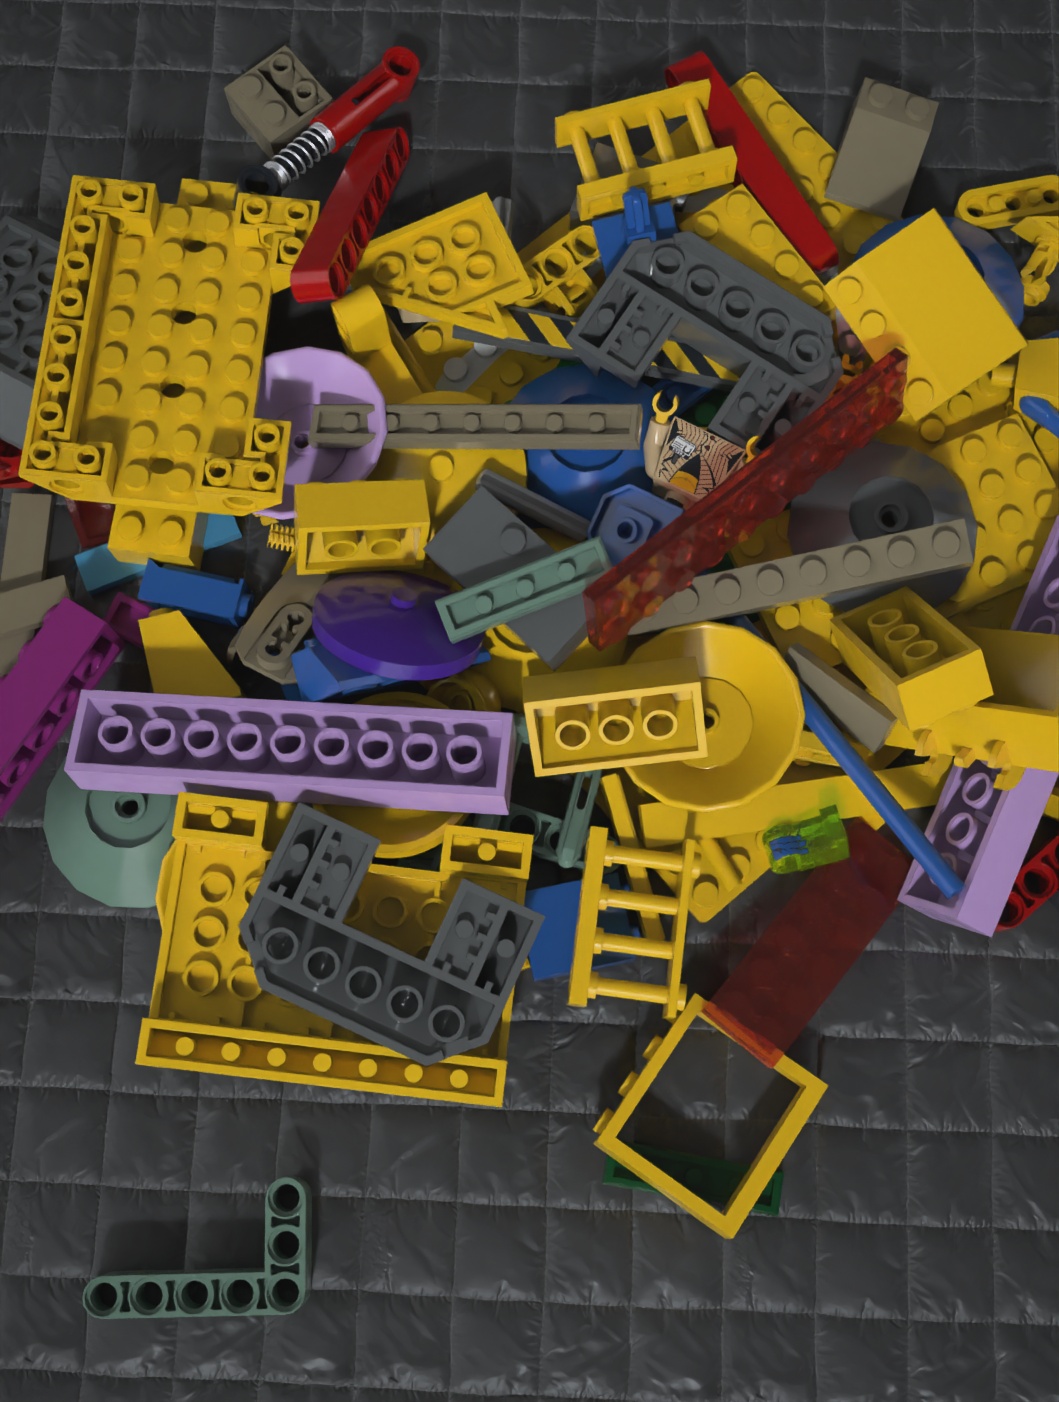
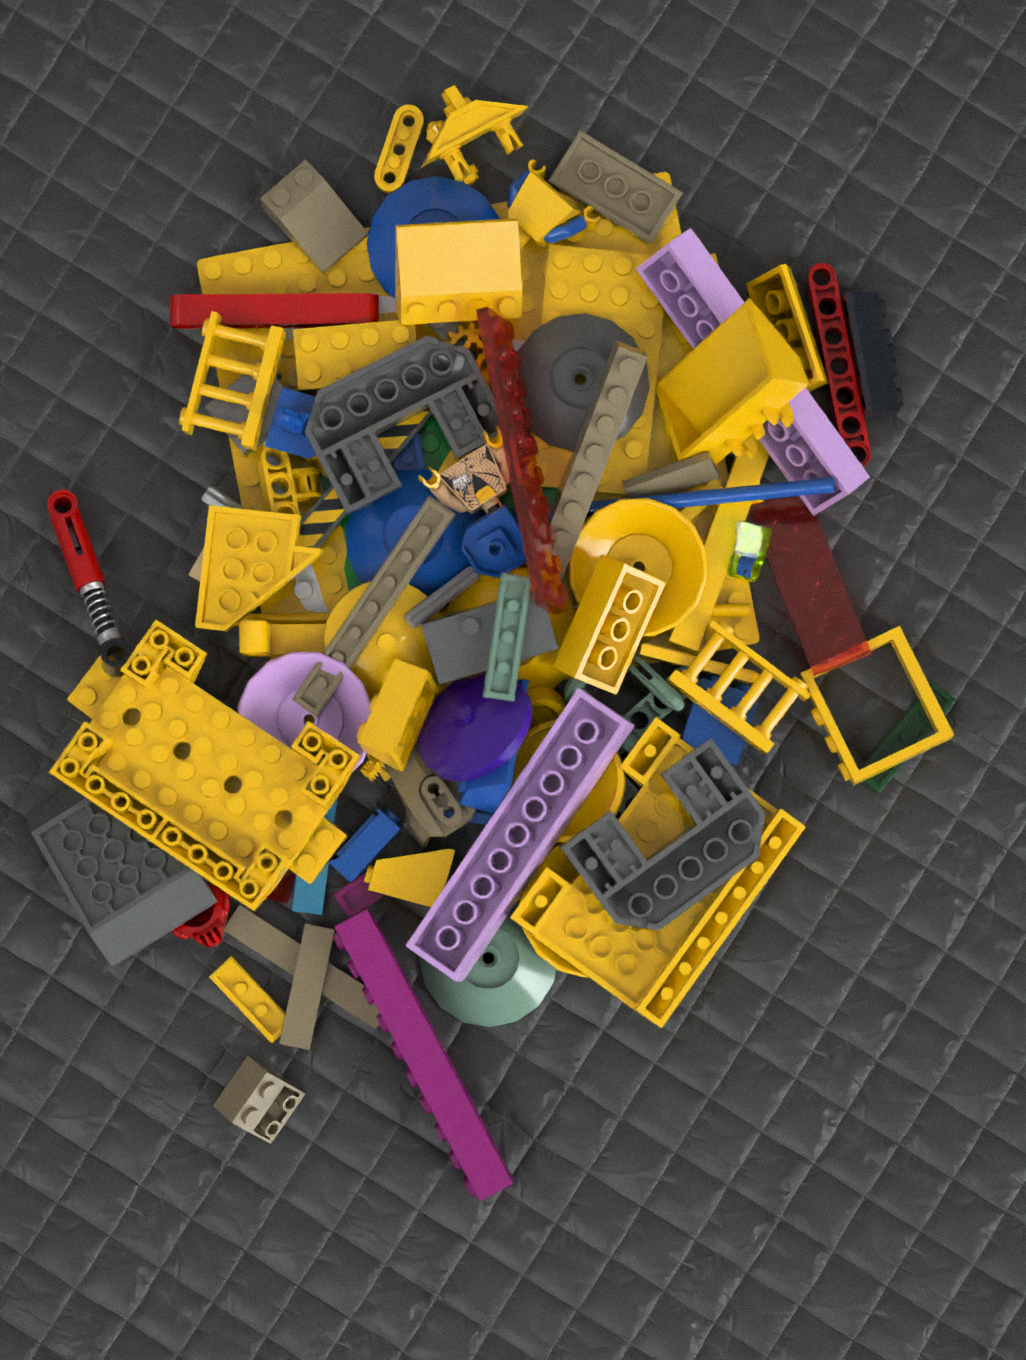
camera: 60 degrees left, 10 degrees up
(220, 1282) = (807, 1052): sand green beam -> none
(276, 101) = (40, 602): dark tan slope -> none
(350, 216) = (169, 601): red beam -> none
(912, 658) = (679, 426): yellow brick -> none

